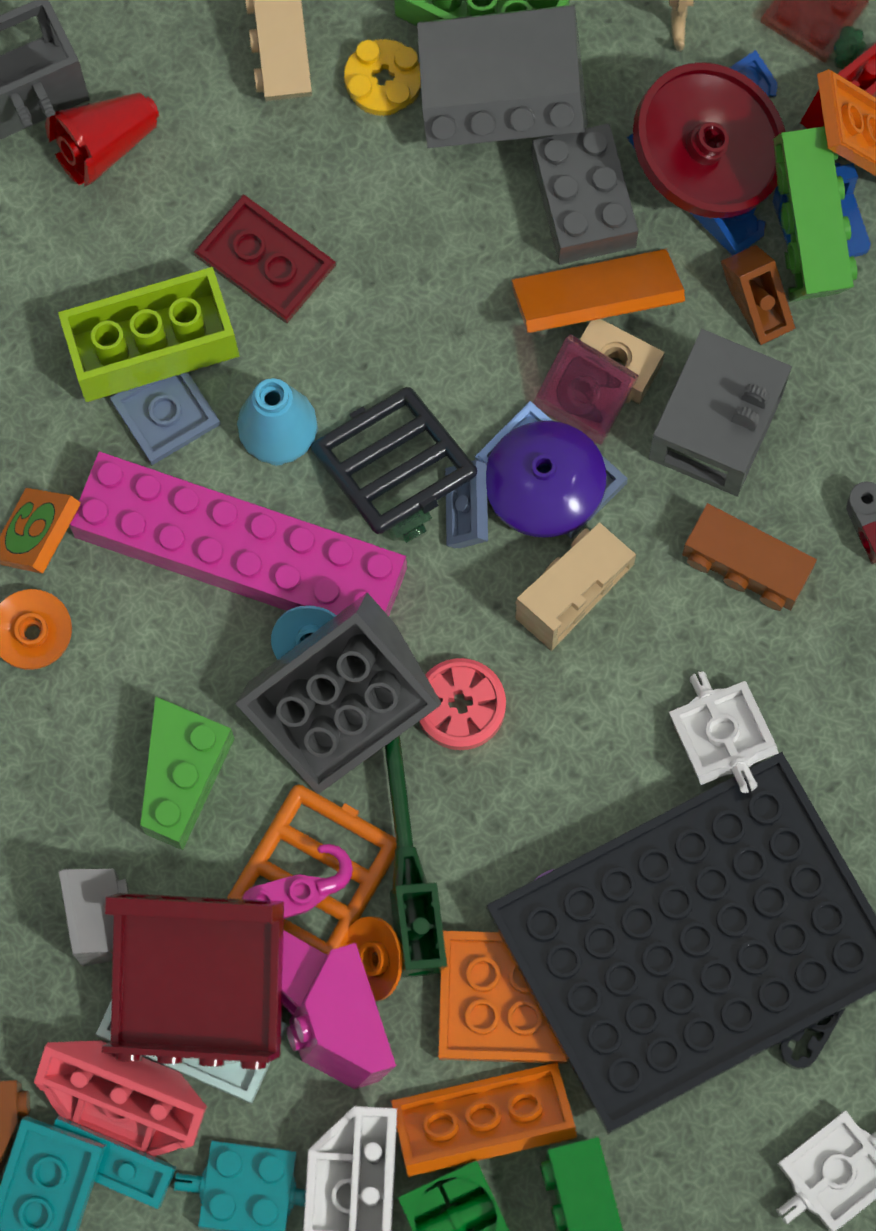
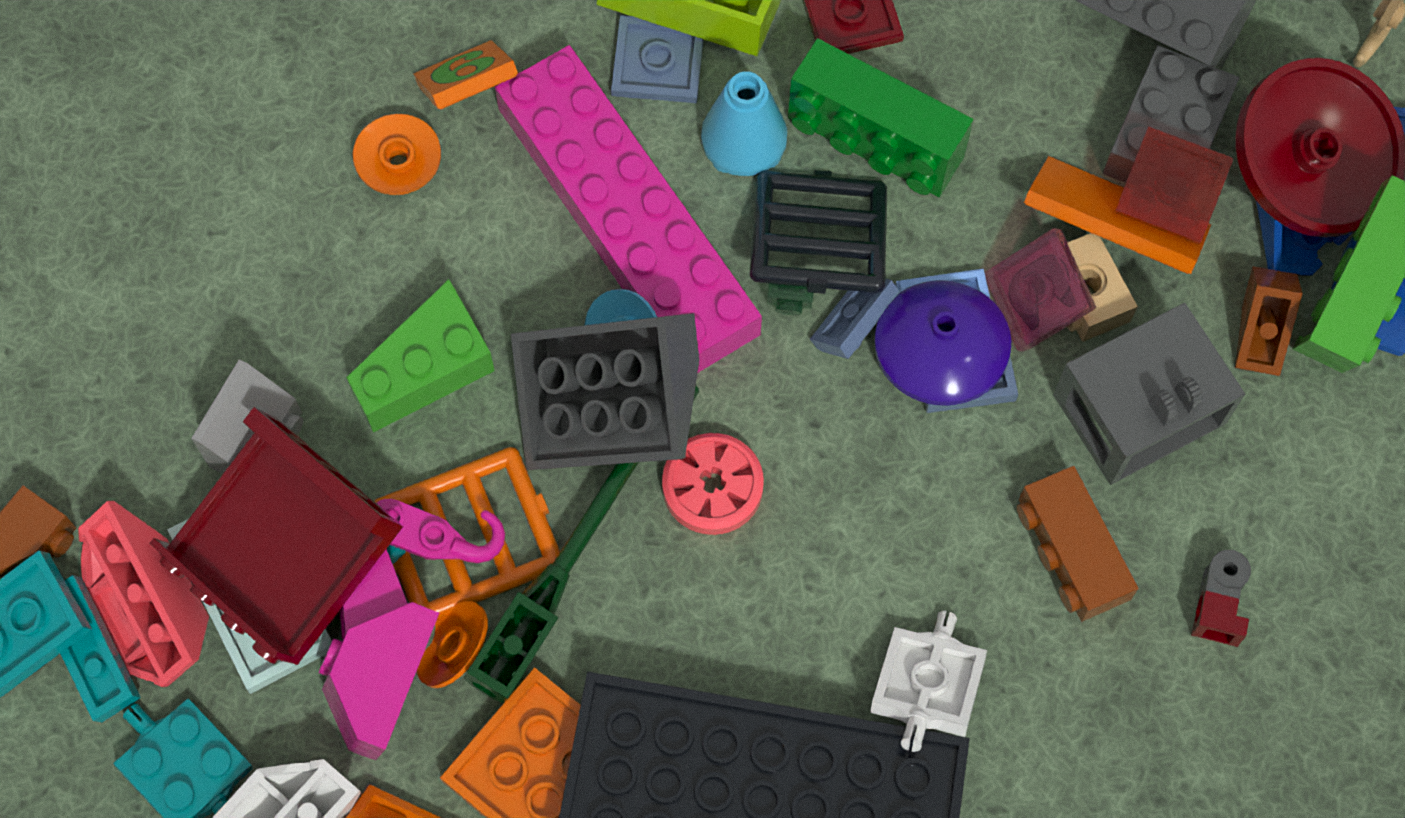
camera: 35 degrees right, 5 degrees down
(373, 343) = (878, 119): none -> green brick
(573, 585) = (894, 451): tan wedge -> none
(626, 243) = (1173, 185): none -> clear red plate

